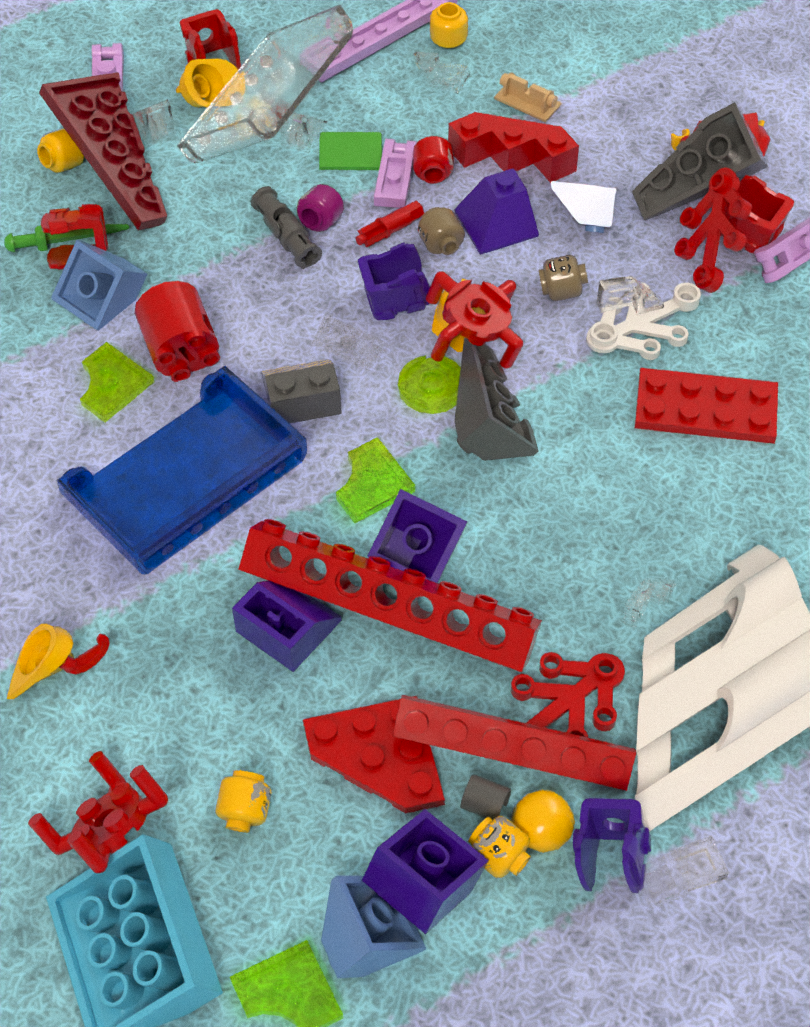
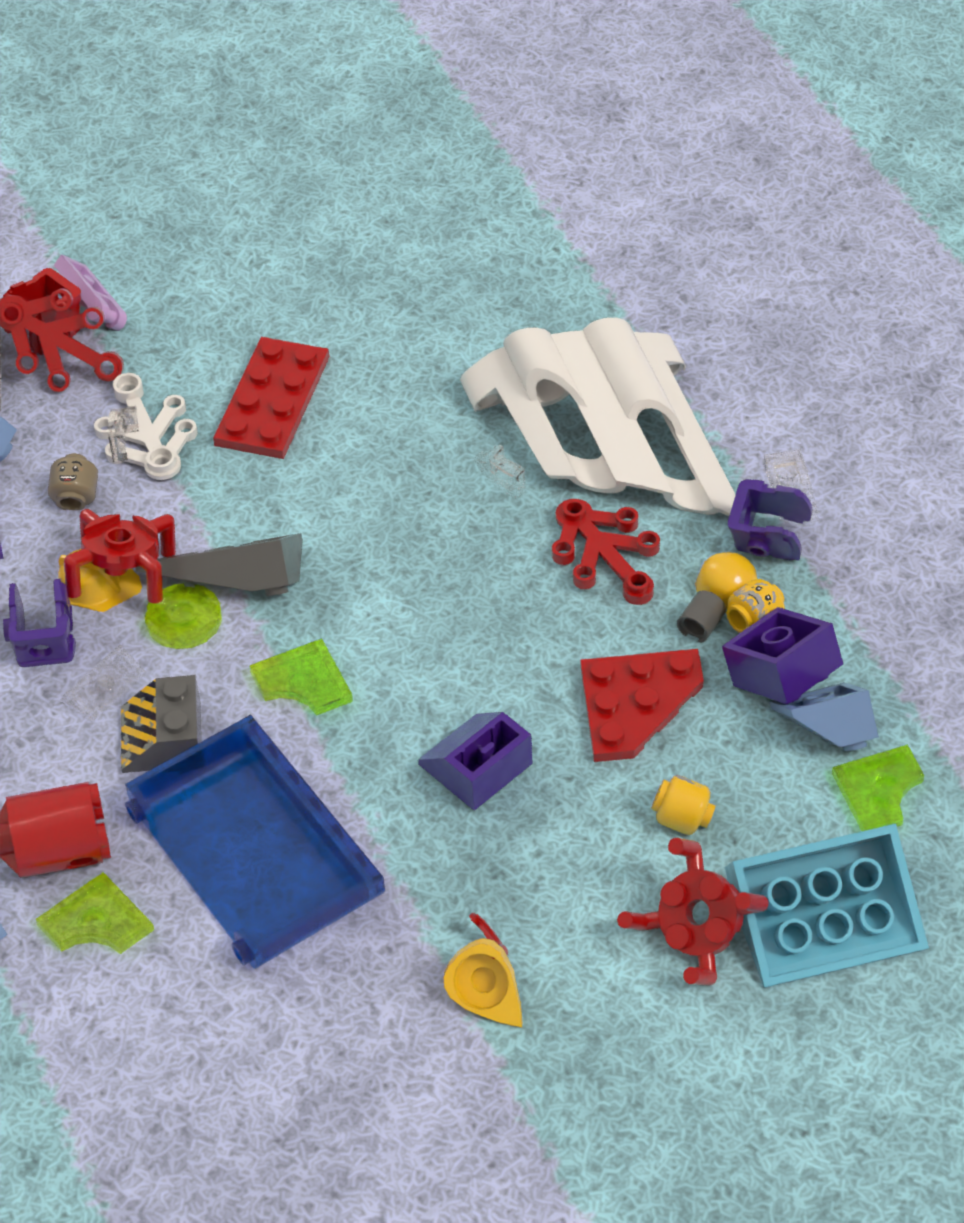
camera: 80 degrees left, 5 degrees down
(263, 560) = (466, 662): red brick -> none
(418, 536) = (410, 626): dark purple slope -> none
(514, 742) = (650, 583): red plate -> none

